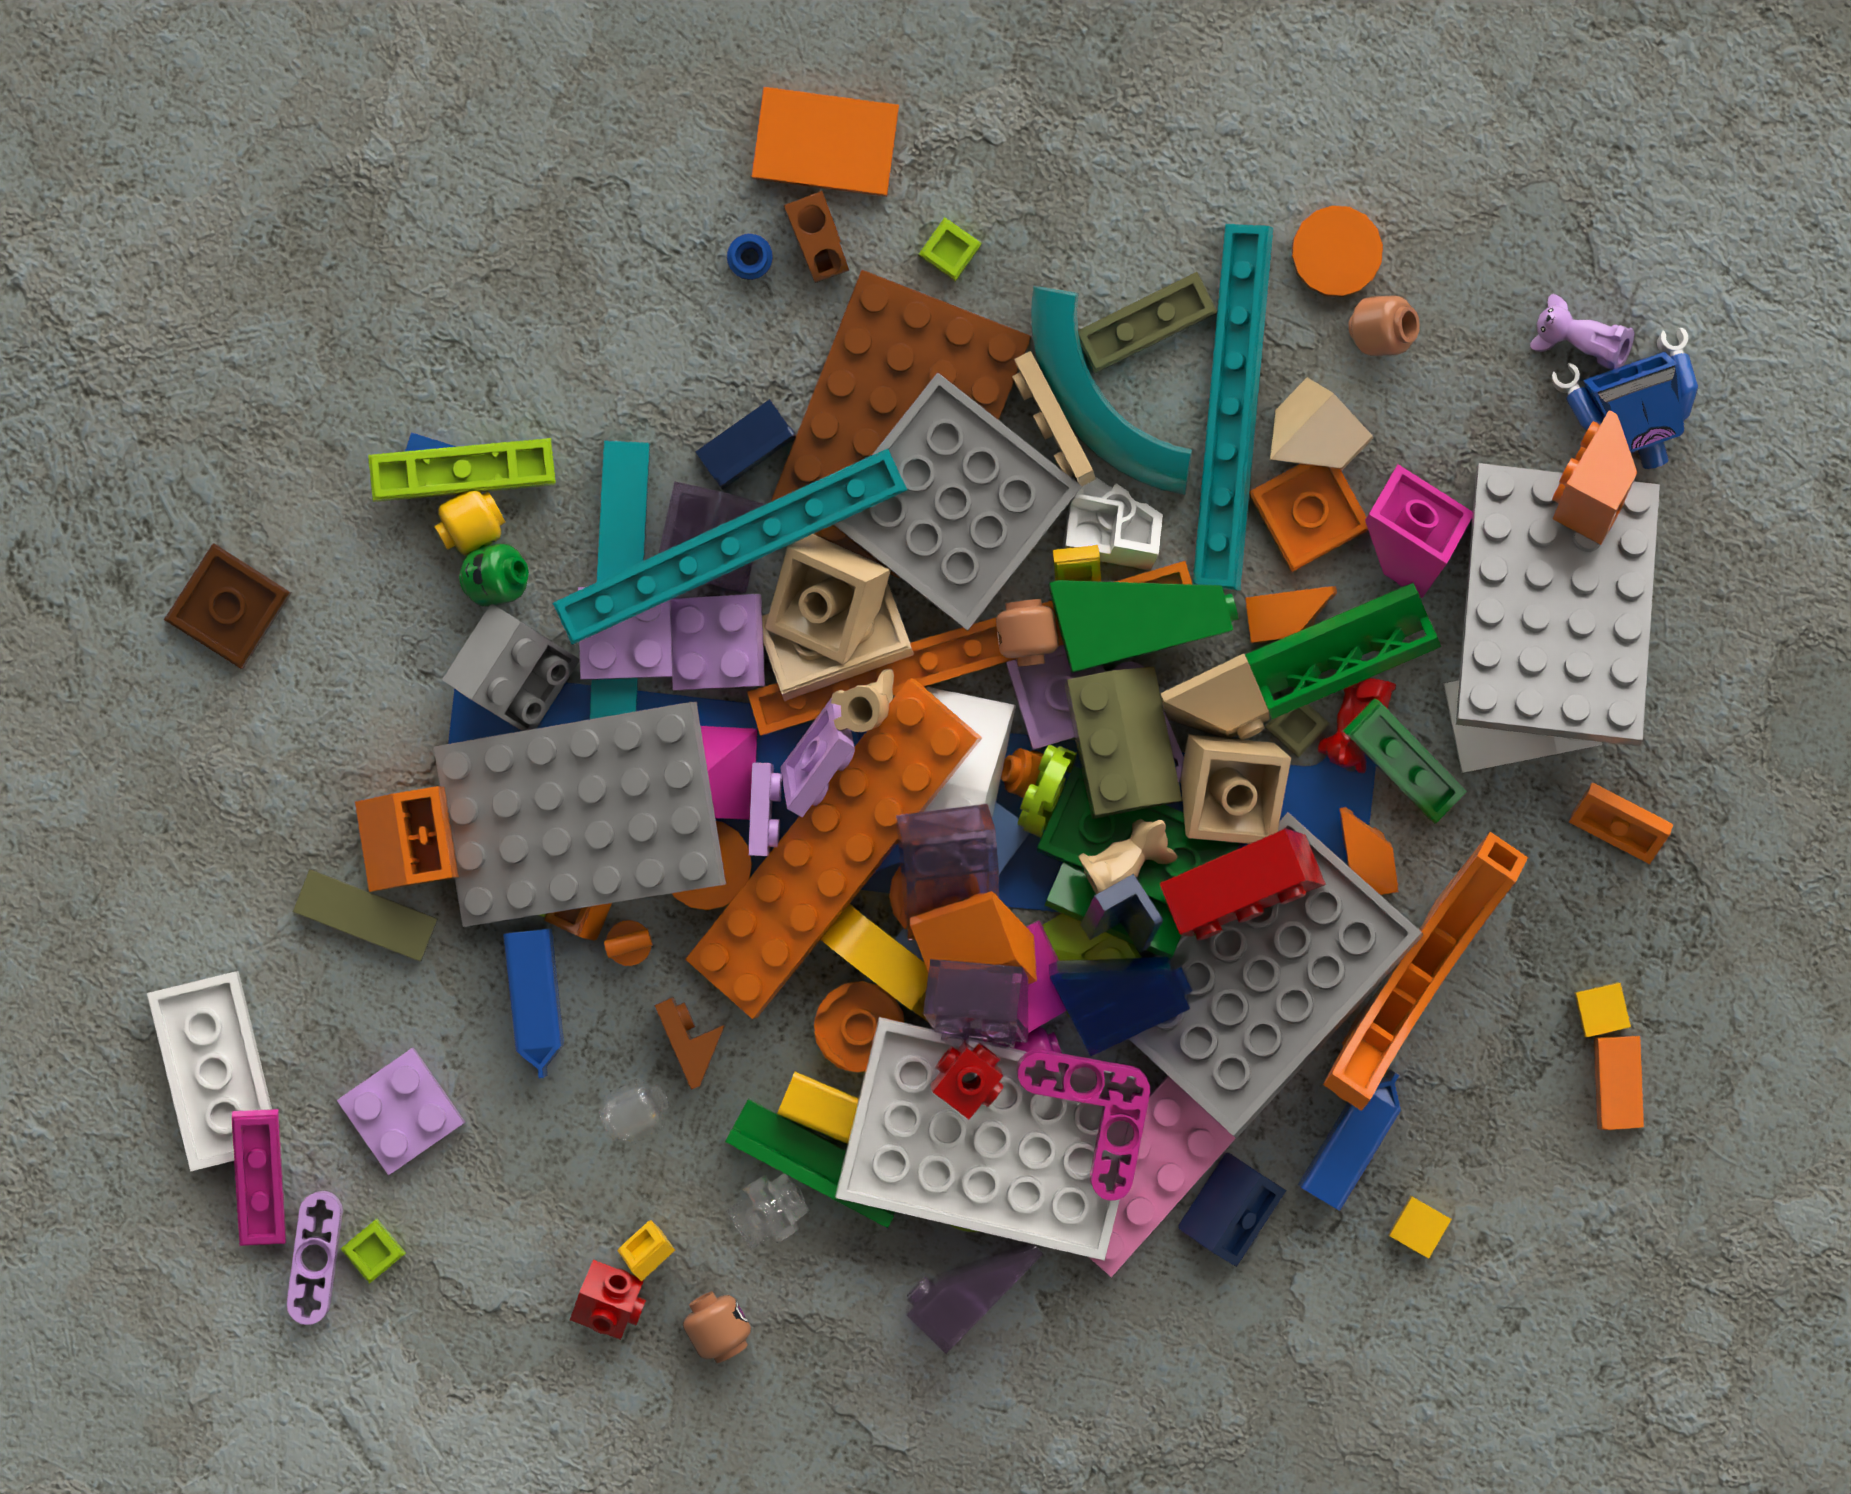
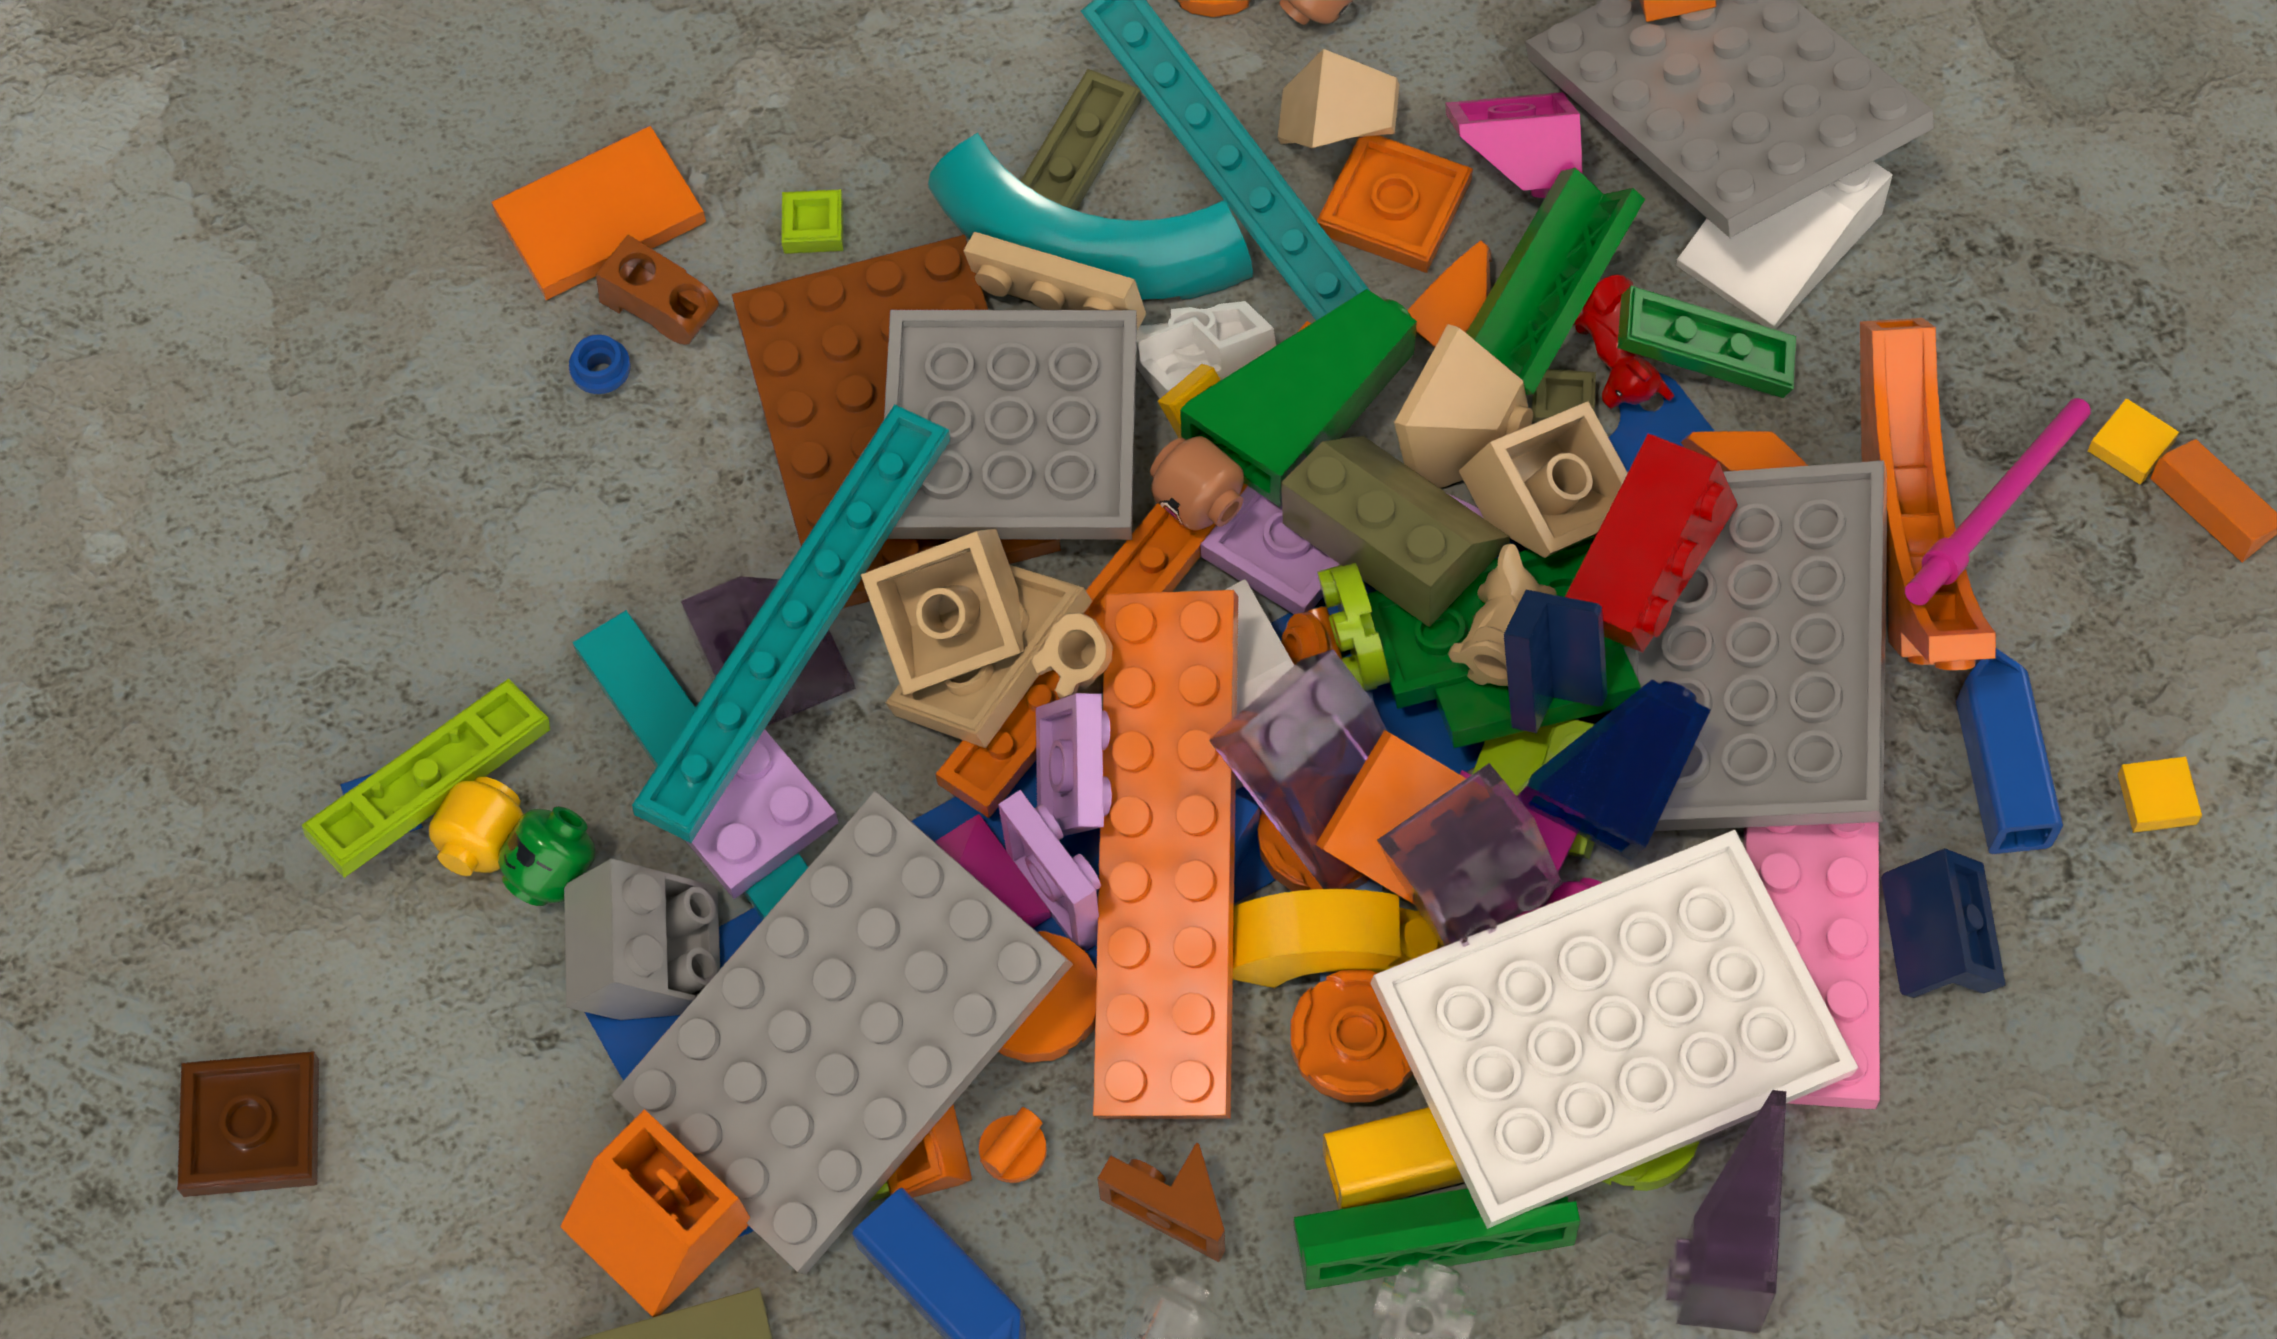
camera: 30 degrees left, 25 degrees down
(717, 642) = (863, 744): lavender plate -> none
(746, 444) = (740, 533): dark blue panel -> none
(968, 1095) = (1531, 951): red brick -> none
(1113, 1109) = (1720, 878): dark pink beam -> none
(1399, 1023) = (1951, 555): none -> dark pink bar
(1621, 823) = (1979, 250): orange plate -> none

